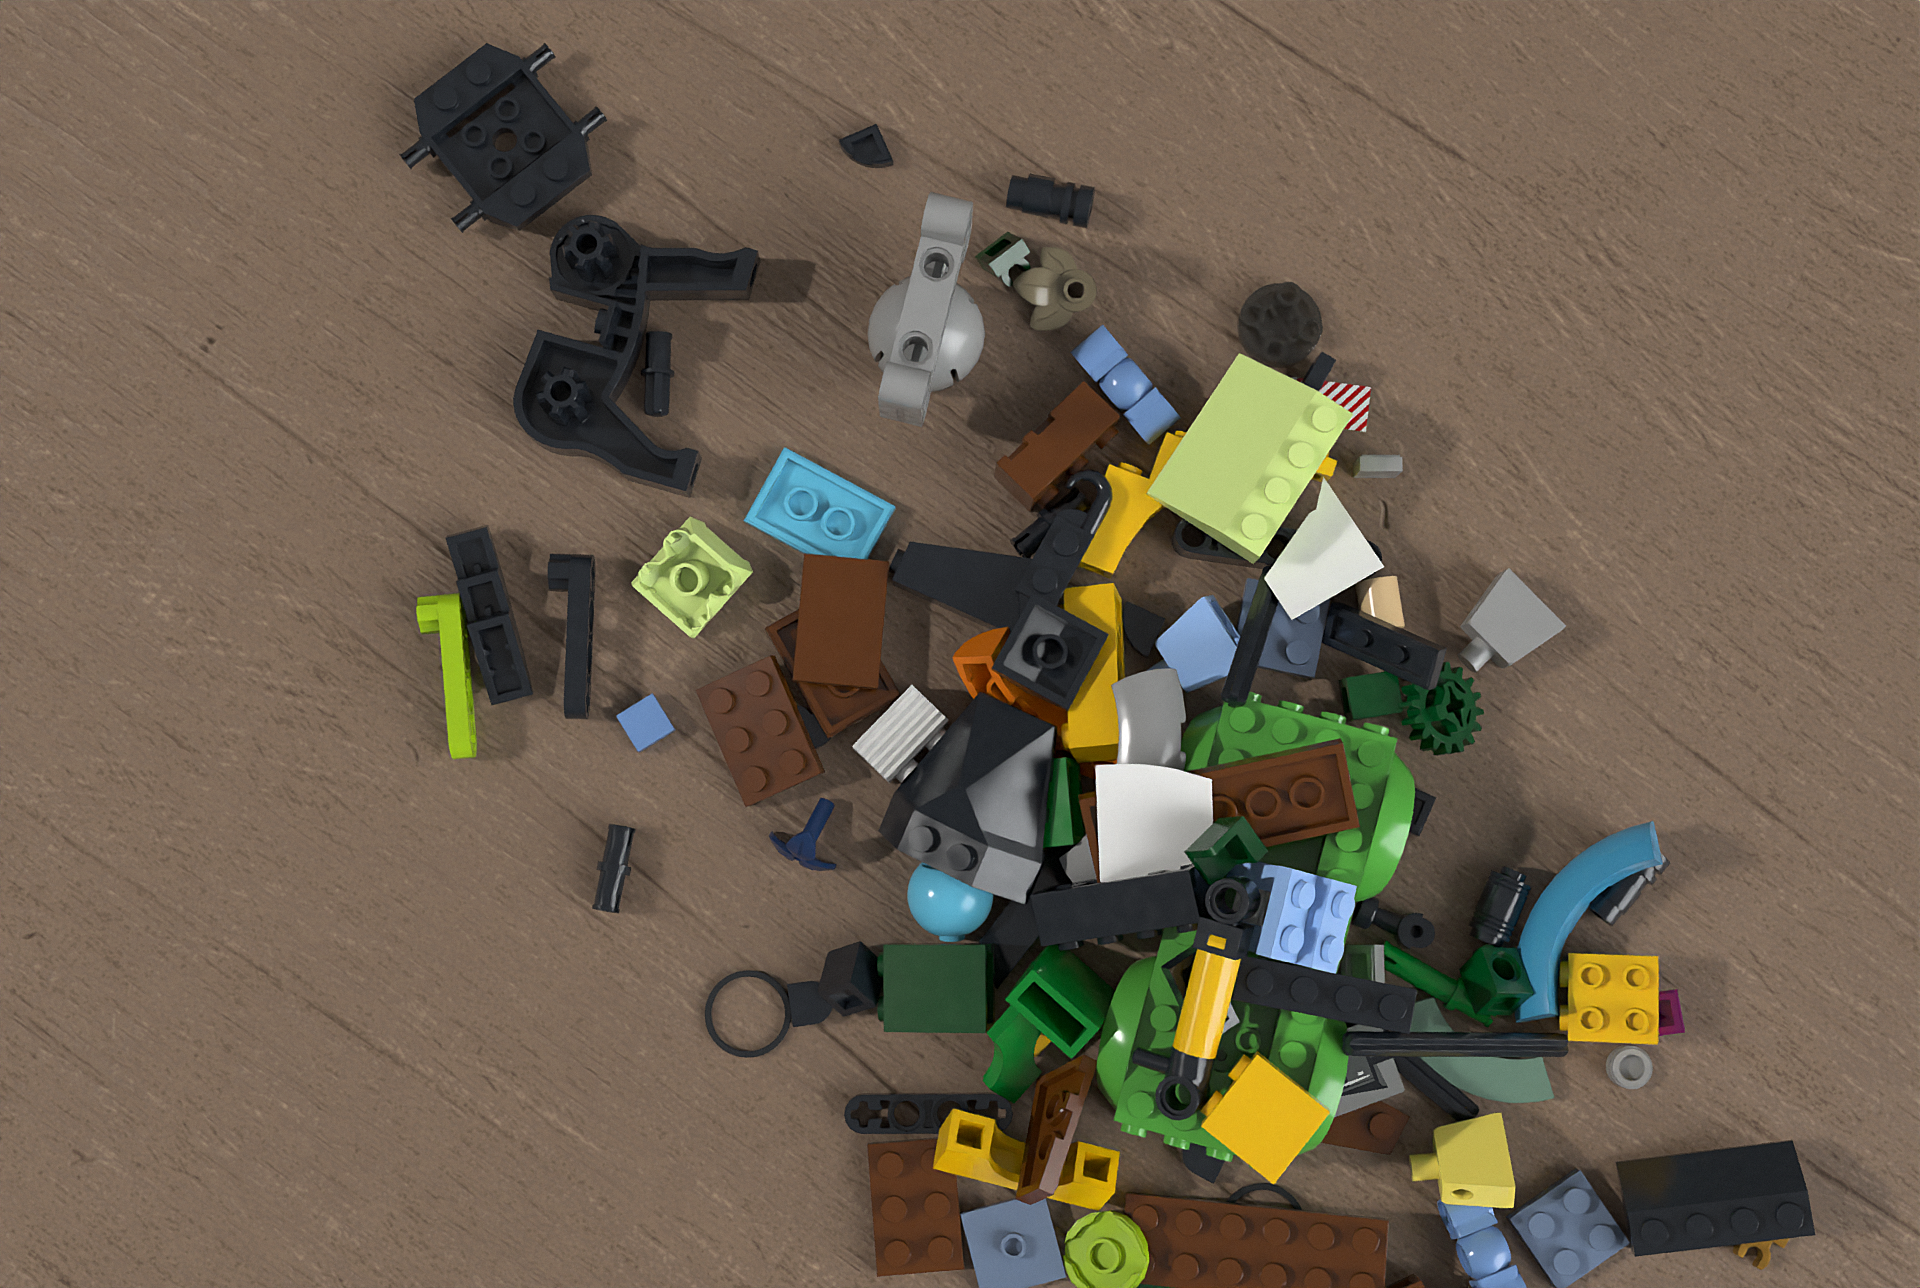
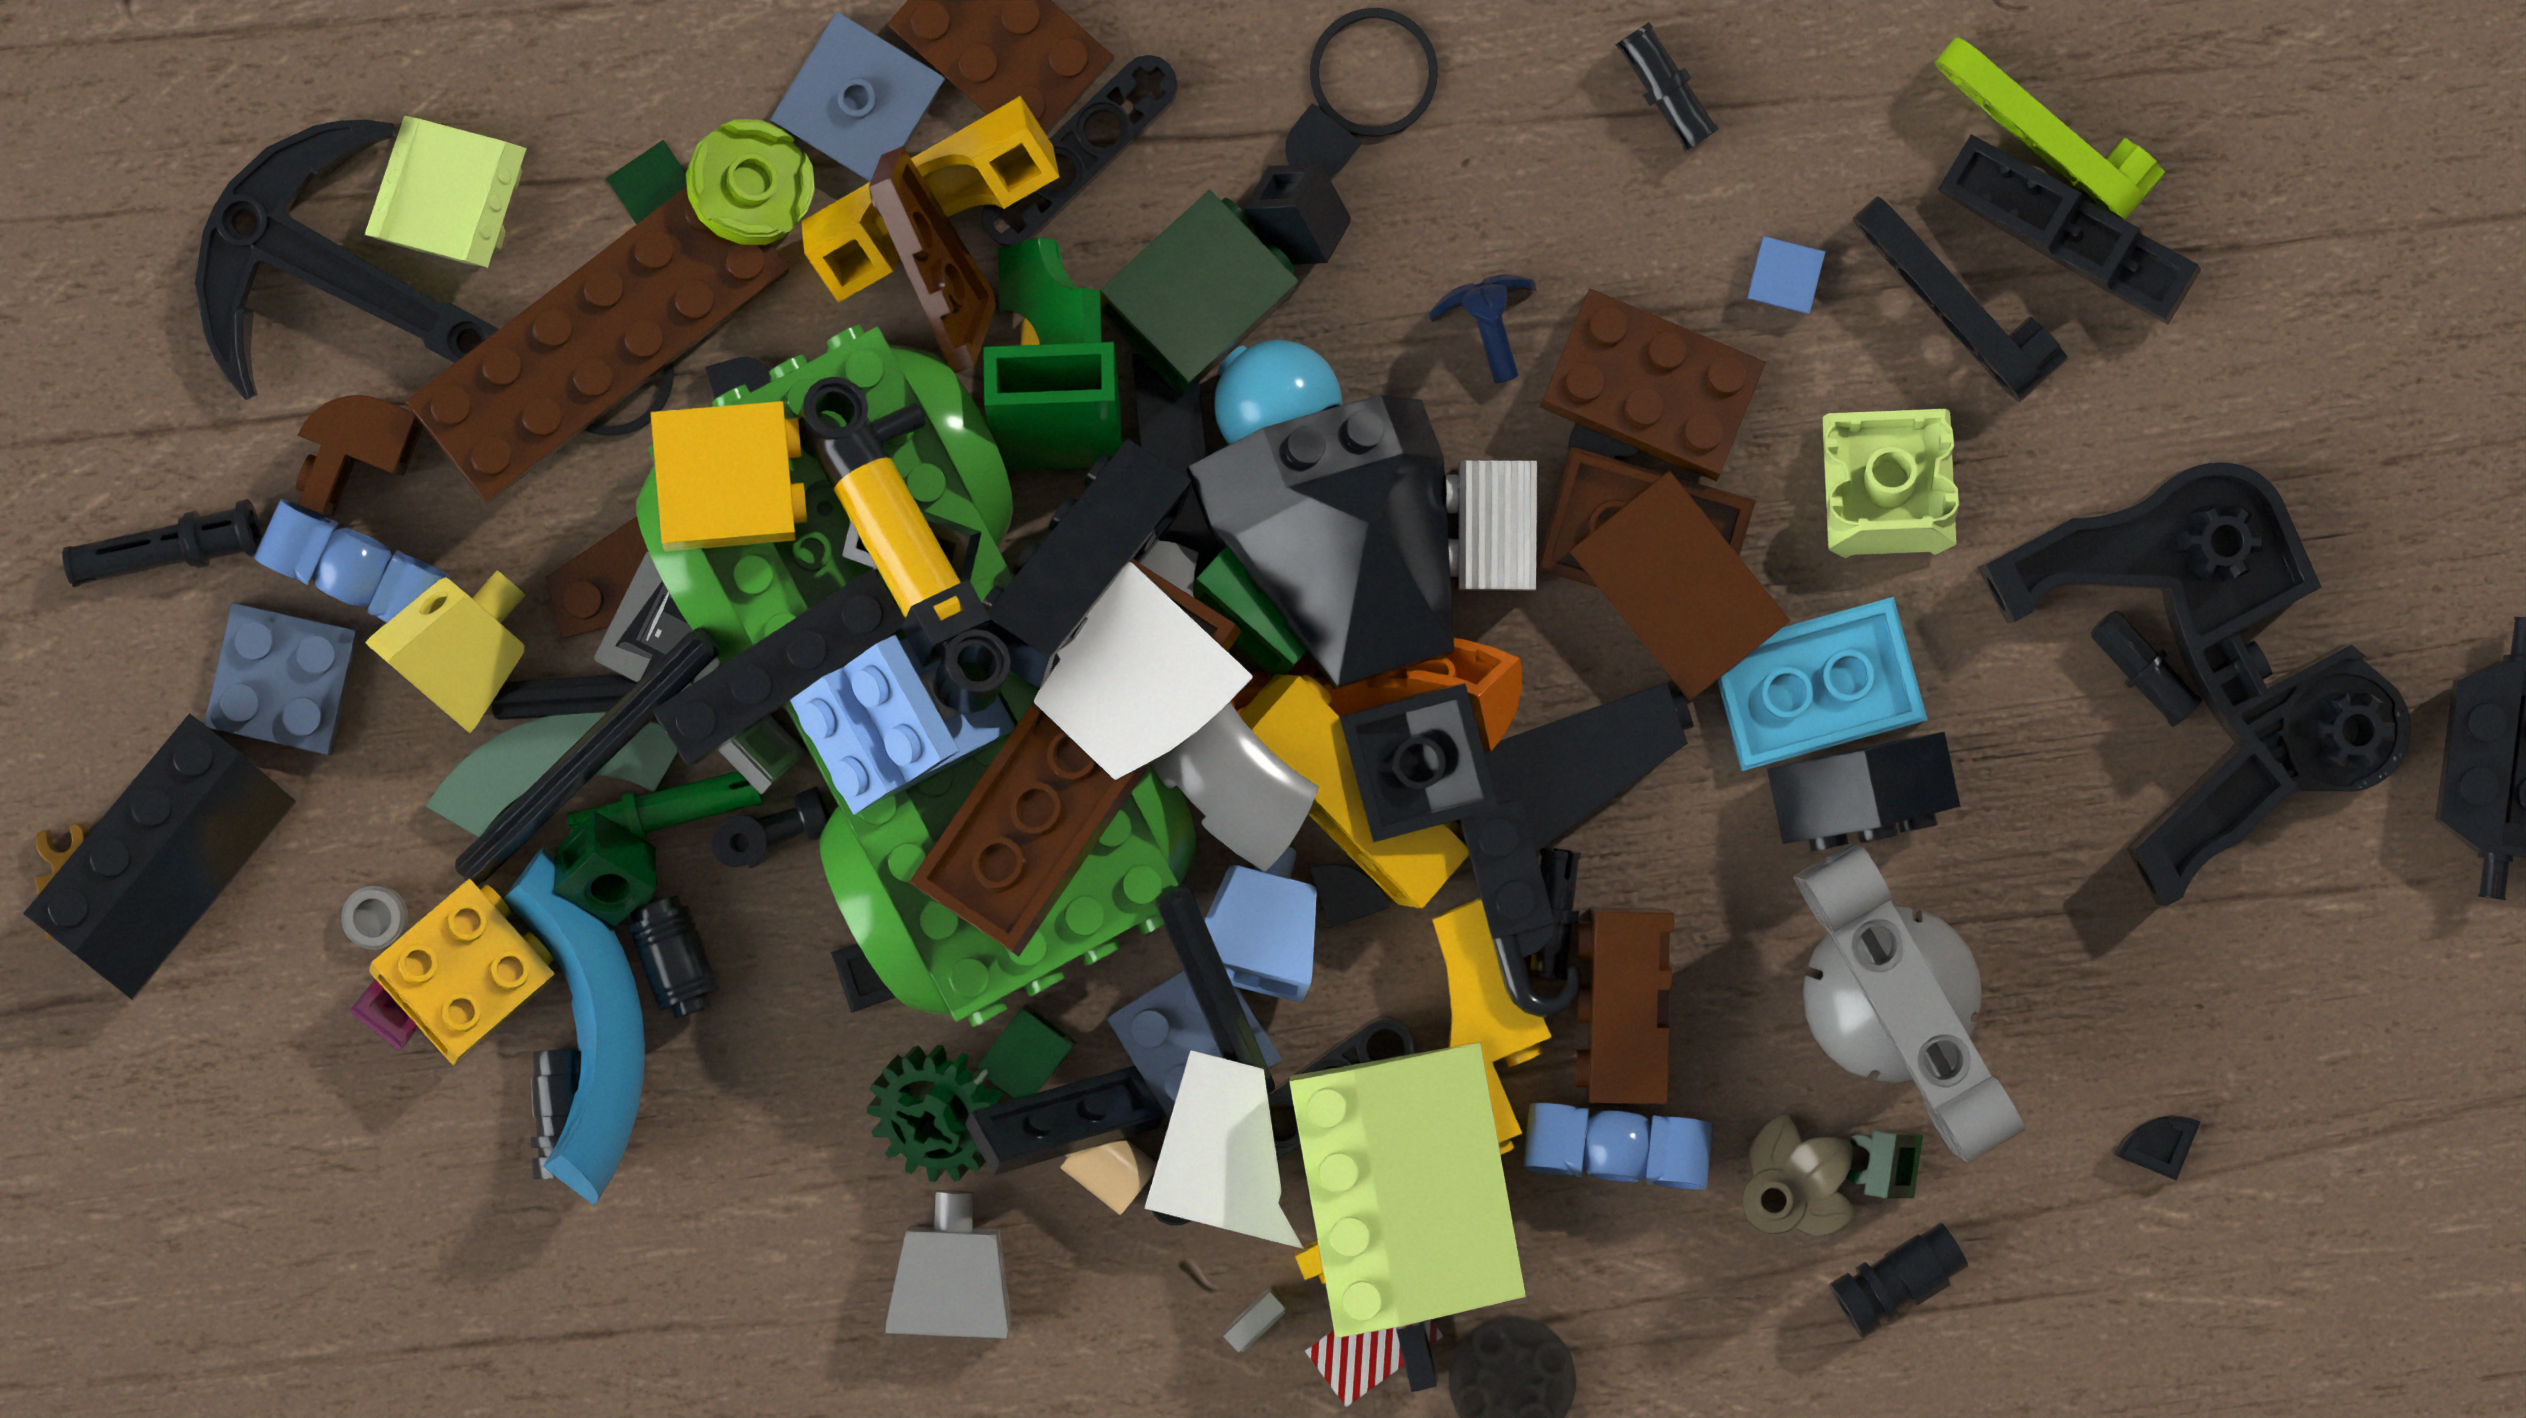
camera: 145 degrees right, 5 degrees up
(847, 439) = (1864, 792): none -> black brick
(1223, 846) = (1033, 719): dark green panel -> none

